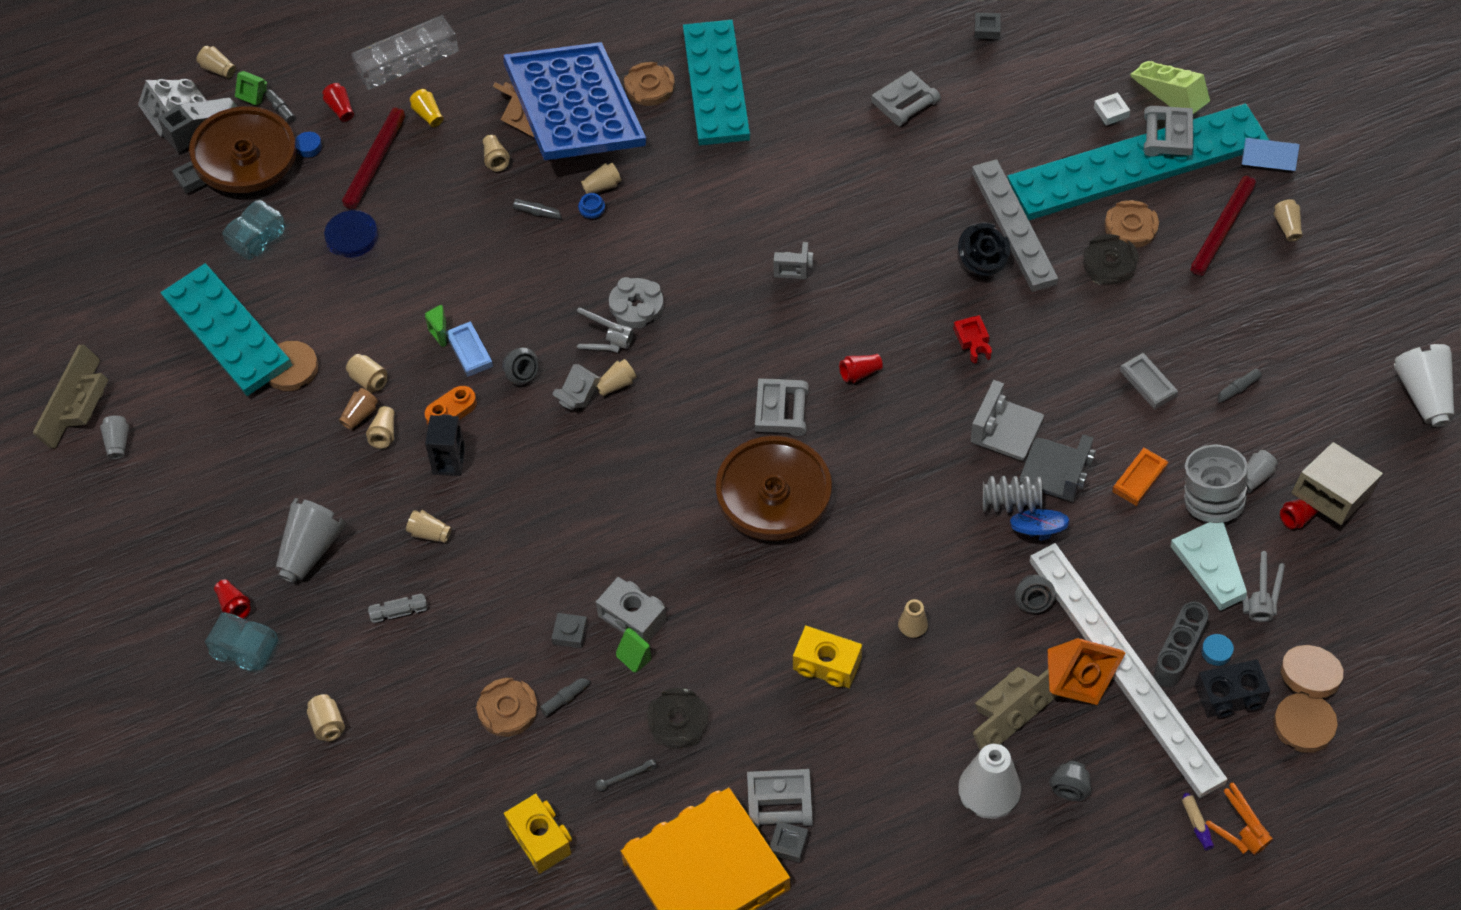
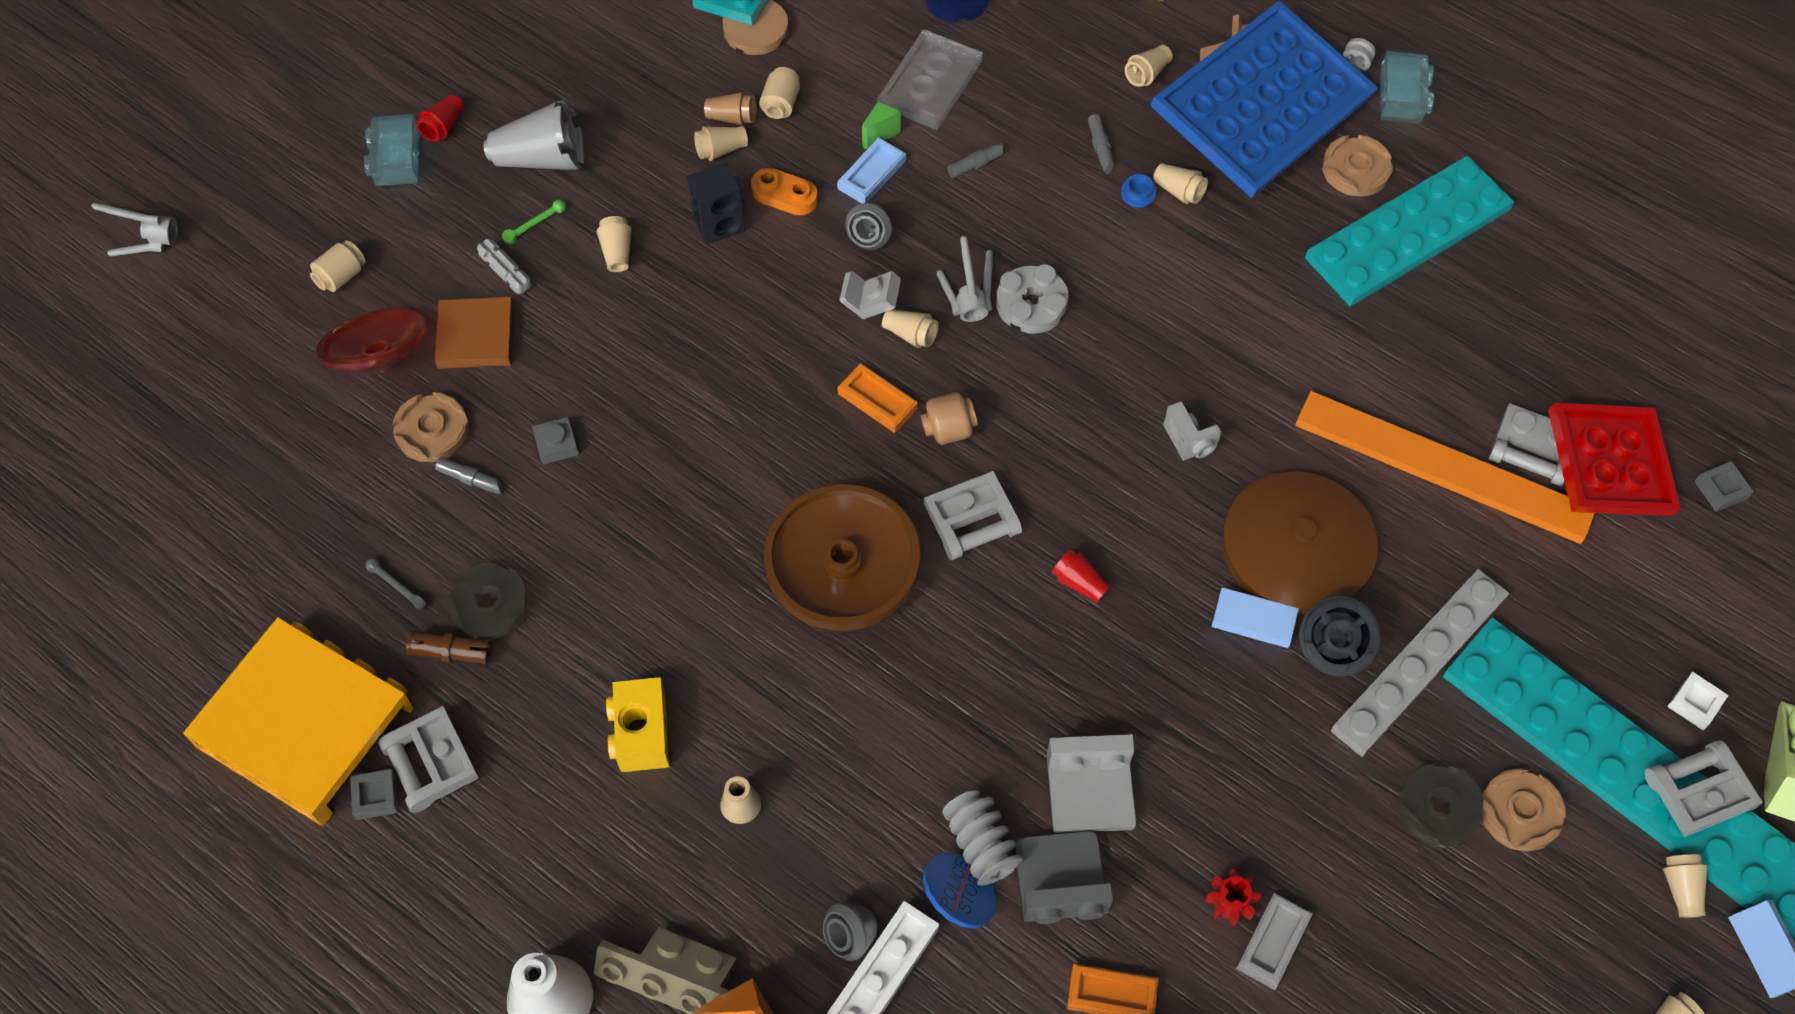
camera: 60 degrees right, 5 degrees up
(199, 837) = (154, 228): none -> light grey plant
(370, 595) = (510, 236): none -> bright green hinge
(414, 281) = (930, 79): none -> clear tile
(416, 710) = (372, 341): none -> clear red dish
(443, 649) = (474, 332): none -> dark orange tile
(501, 285) = (976, 160): none -> dark grey piece
(541, 850) = (278, 509): yellow brick -> none
(567, 37) = (1359, 53): none -> light grey bush
(612, 29) = (1405, 87): none -> clear light blue brick
(623, 595) = (601, 468): light grey brick -> none
(633, 651) = (556, 517): bright green slope -> none
(656, 423) = (877, 398): none -> orange tile
(700, 755) = (448, 647): none -> reddish brown pin
(703, 385) = (949, 418): none -> medium nougat head
(891, 149) = (1443, 466): none -> orange tile
(901, 245) = (1299, 540): none -> reddish brown dish
(939, 291) = (1255, 617): none -> light blue tile
(942, 64) = (1613, 459): none -> red plate
(973, 335) = (1208, 685): red plate -> none
(1115, 385) = (1232, 885): none -> red gear
(1215, 171) = (1687, 884): none -> tan cone
(1223, 226) = (1602, 934): dark red axle -> none

